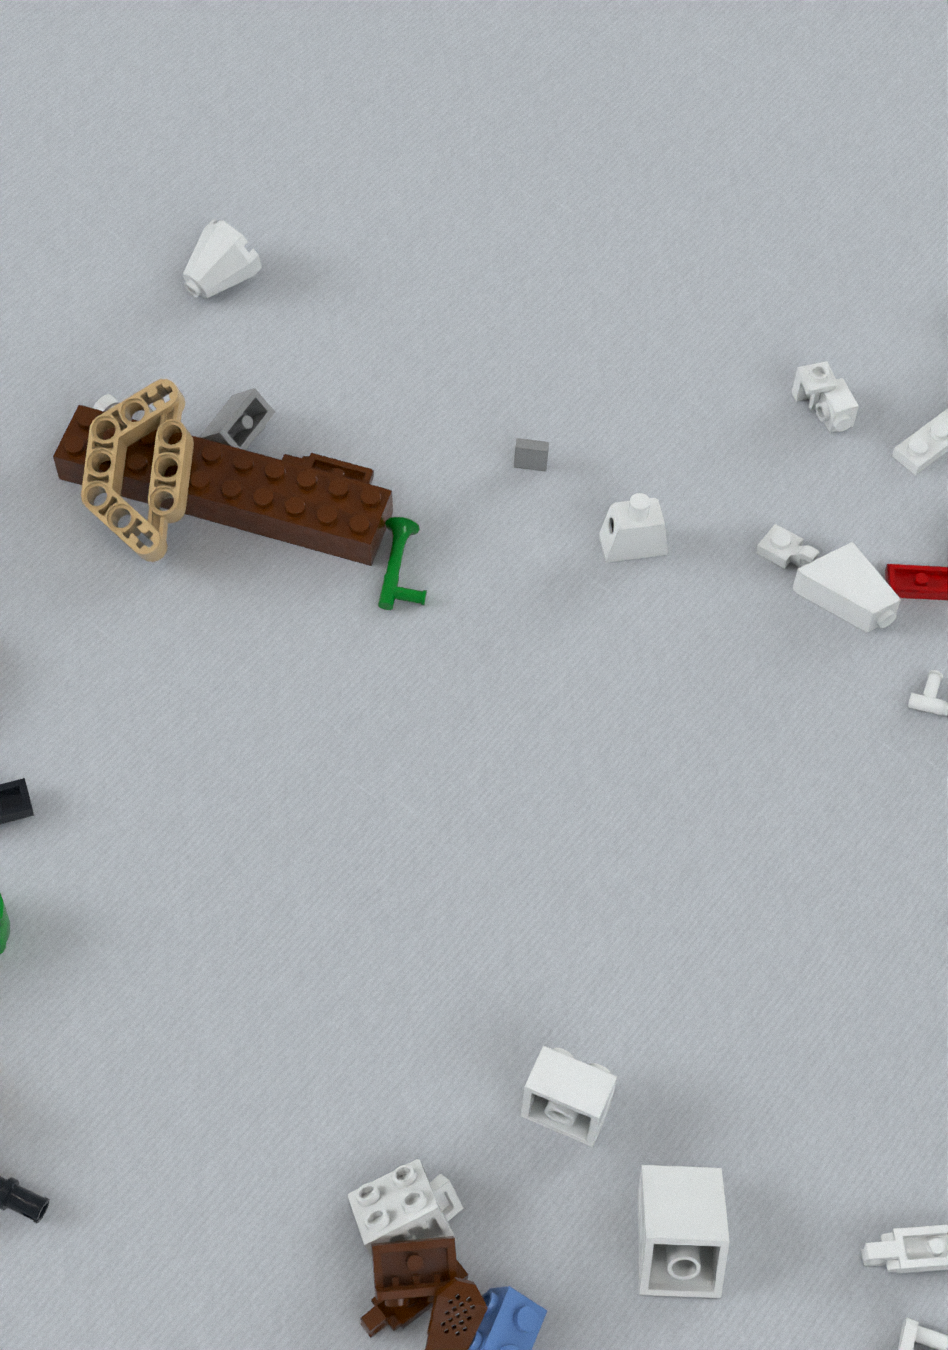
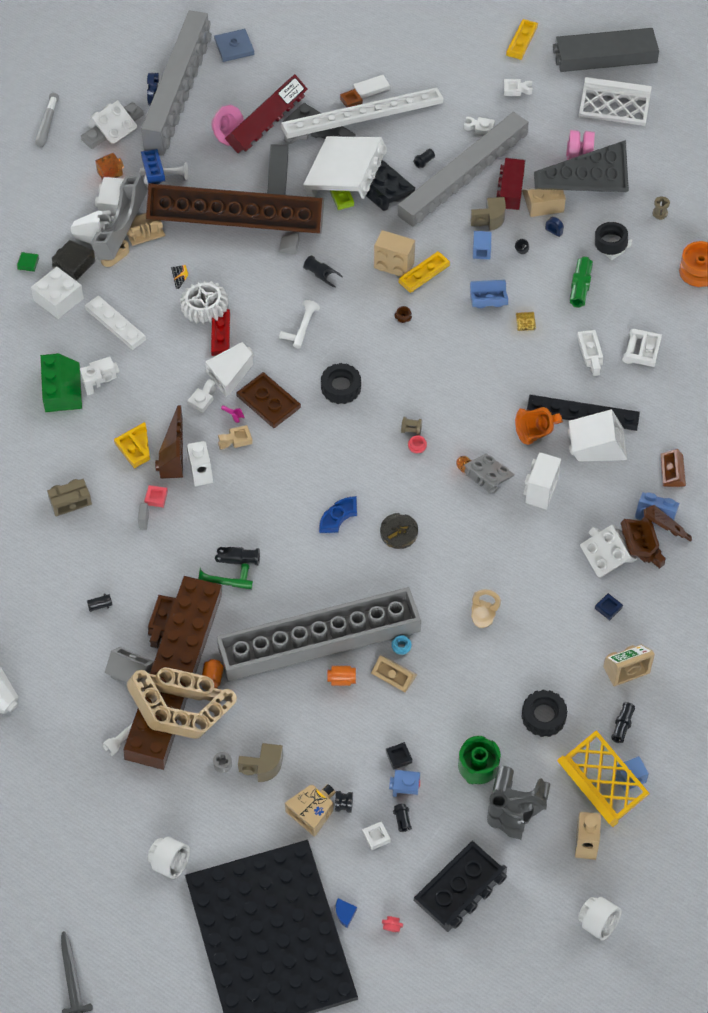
camera: 90 degrees left, 0 degrees up
(32, 605) = (266, 766): none -> dark tan brick
(43, 1022) = (544, 698): none -> black tyre
(47, 544) = (222, 755): none -> light grey bush
(128, 1212) = (628, 664): none -> tan slope
(181, 724) = (341, 675): none -> orange brick
(182, 811) = (393, 673): none -> tan slope
(212, 539) = (213, 670): none -> orange brick
(235, 815) = (401, 639): none -> medium azure plate
(265, 696) = (318, 634): none -> light grey brick
(276, 1205) = (608, 606): none -> dark blue tile
(285, 964) = (483, 611): none -> tan piece
(371, 403) = (99, 602): none -> black pin
(442, 590) = (237, 555): none -> black piece
(483, 842) = (399, 531): none -> clear smoke tile
(526, 744) = (337, 514): none -> blue tile
(572, 474) = (156, 496): none -> coral plate
(575, 358) = (69, 497): none -> dark tan brick
(608, 1007) = (487, 472): none -> light grey hinge
(629, 965) = (461, 461): none -> clear orange hinge
(677, 886) = (417, 444): none -> coral plate
(679, 448) = (134, 445): none -> yellow wing
(685, 499) = (171, 452): none -> reddish brown wedge
(694, 595) = (237, 436): none -> tan plate
(717, 1107) = (535, 424): none -> orange helmet
(719, 877) = (408, 426): none -> dark tan bush
(748, 593) = (236, 413): none -> dark pink hand
(759, 1218) = (573, 410): none -> black plate
(783, 650) = (268, 400): none -> reddish brown tile
(805, 339) = (60, 383): none -> green slope
(824, 739) = (341, 371): none -> black tyre

